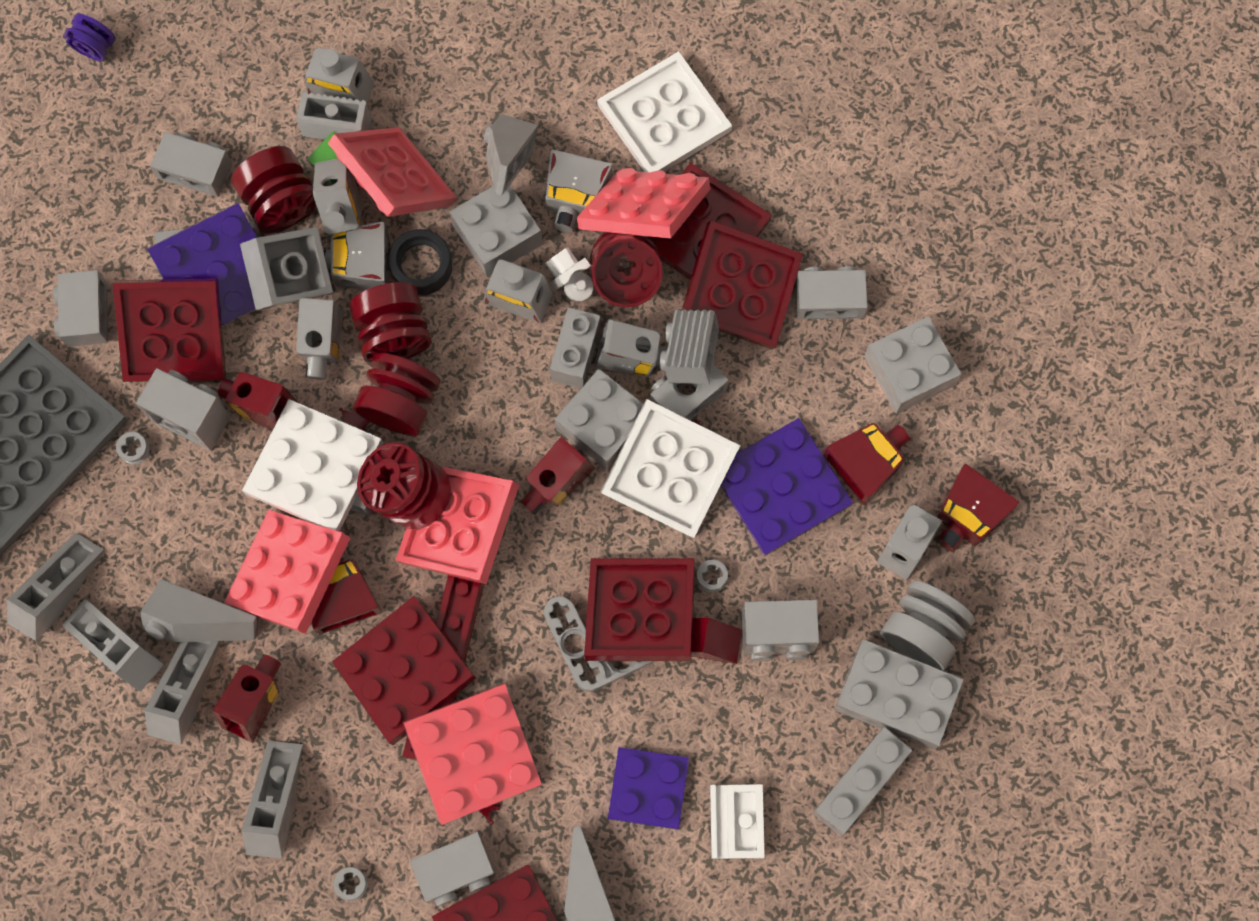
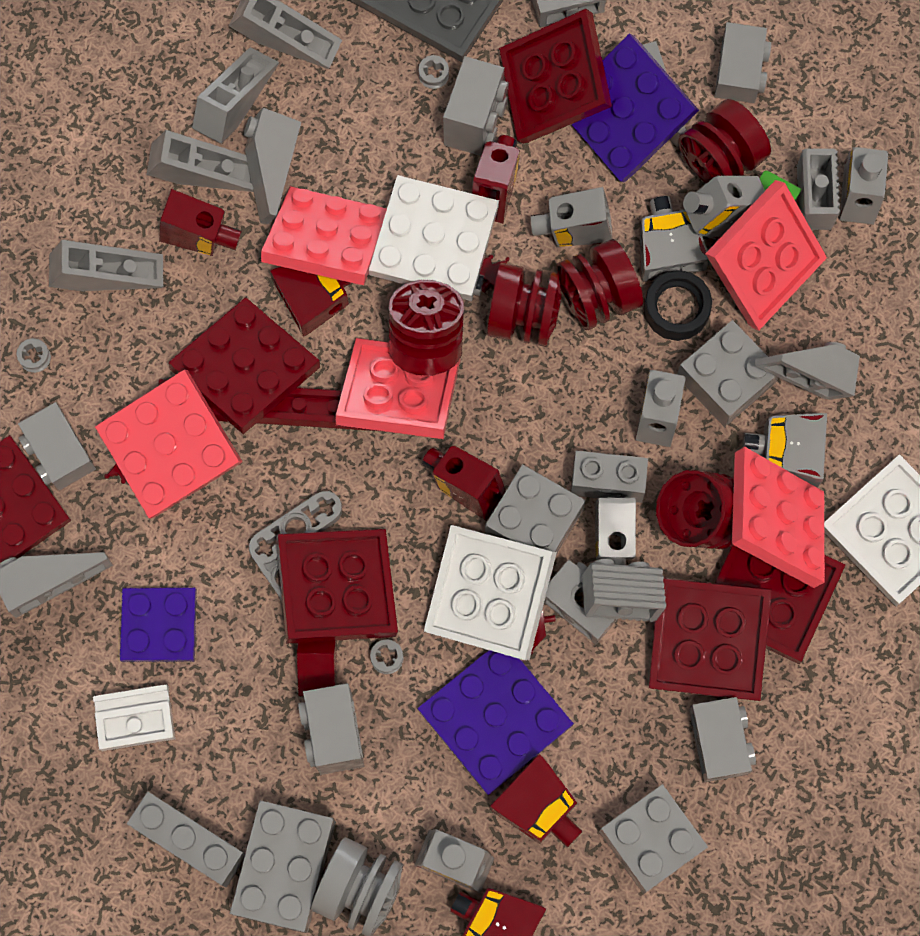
camera: 80 degrees right, 0 degrees up
(286, 268) = (636, 171): light grey brick -> none
(570, 273) = (687, 455): white hips -> none

